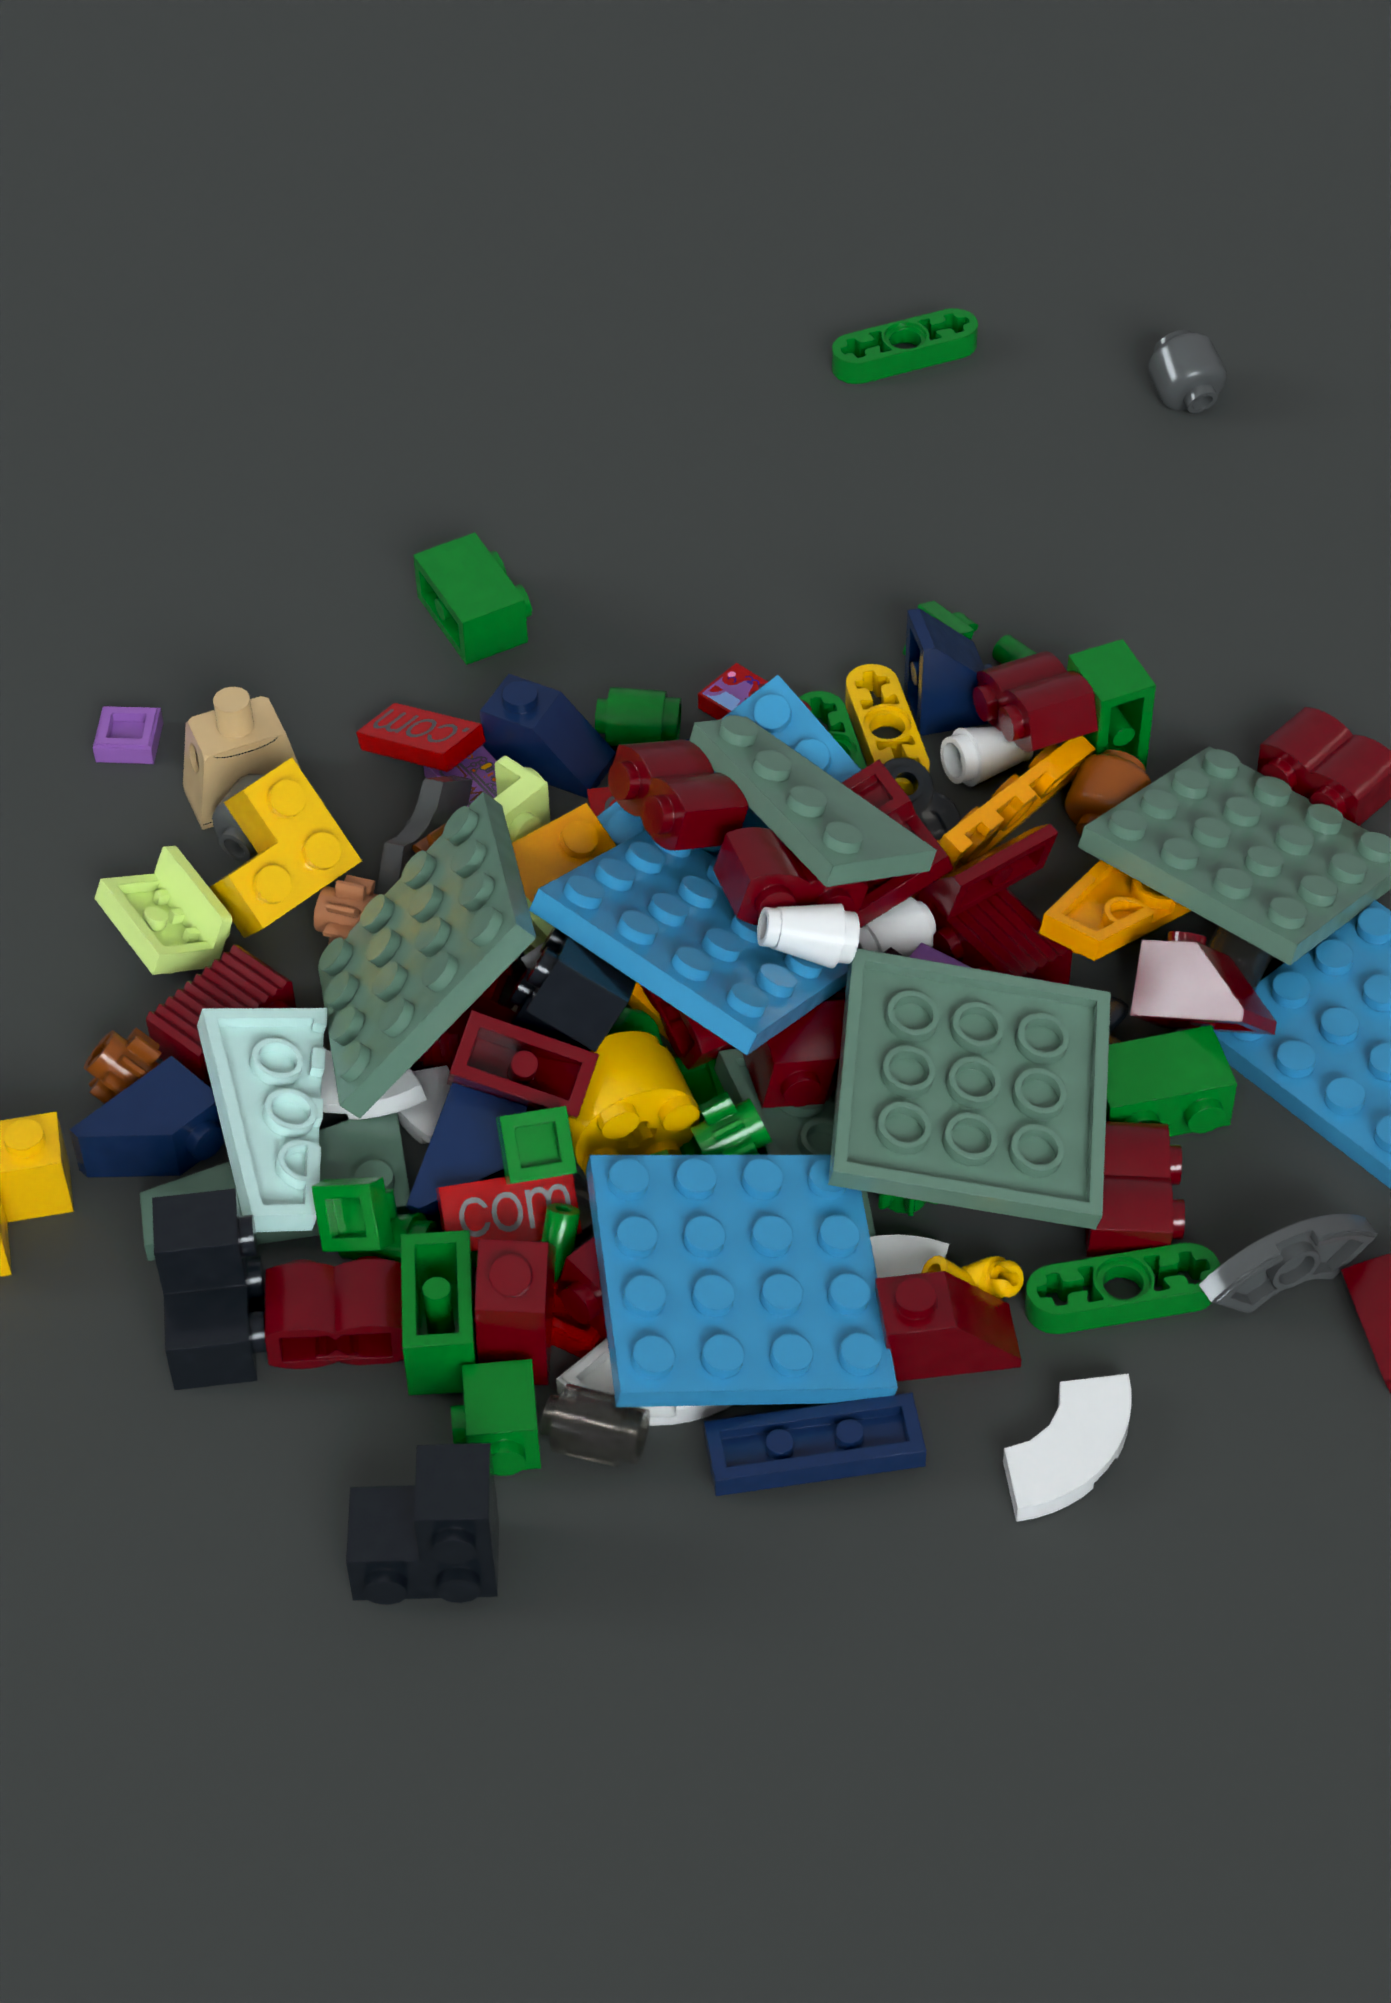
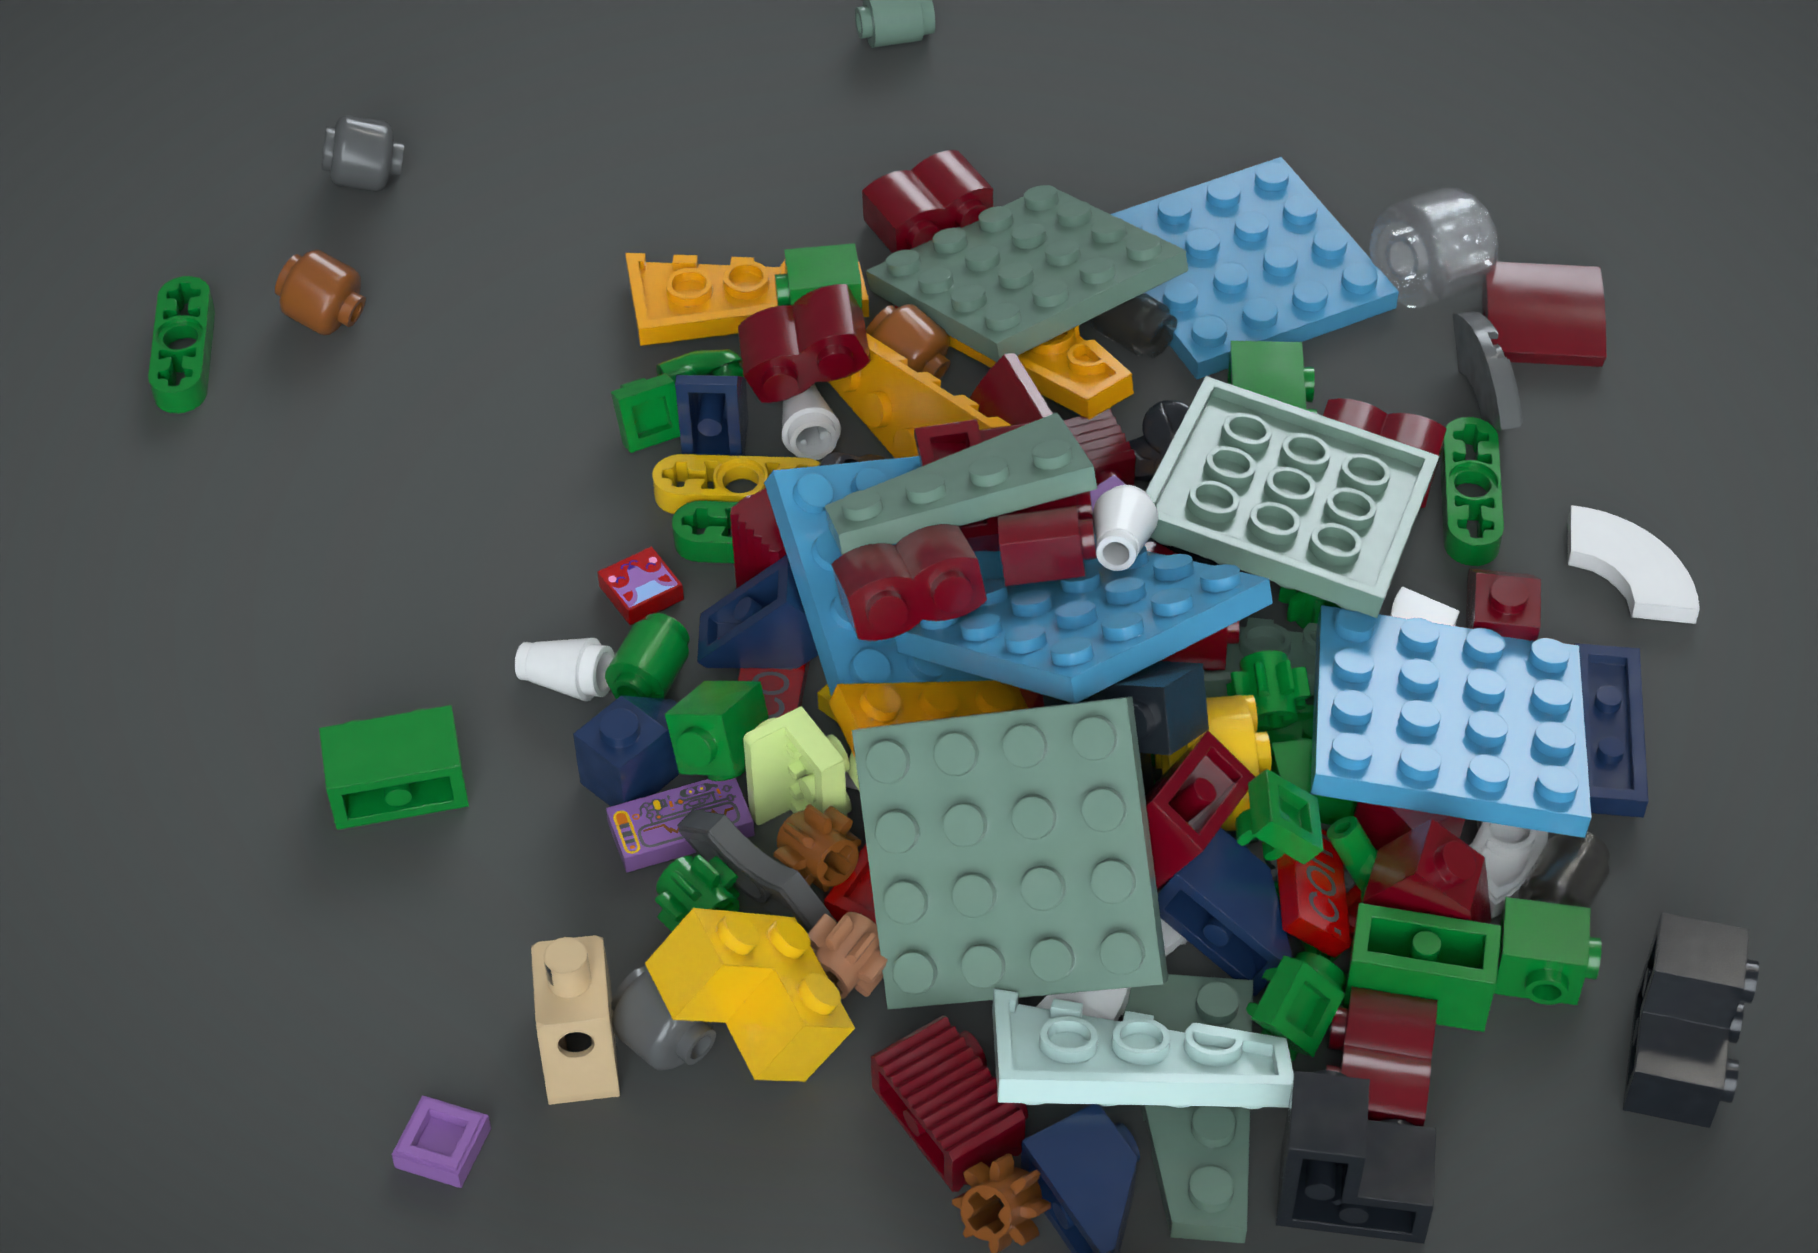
camera: 75 degrees left, 0 degrees up
(167, 915) = (774, 1128): yellowish green bracket -> none
(383, 806) = (695, 884): none -> green gear
(421, 737) = (594, 850): red tile -> none
(562, 759) = (711, 726): none -> green brick
(618, 666) = (566, 666): none -> white cone
(989, 1274) = (1443, 574): yellow arm -> none
(993, 399) = (320, 292): none -> dark orange head
(1124, 613) = (700, 299): none -> light orange wing
(1194, 986) = (1187, 339): slope -> none

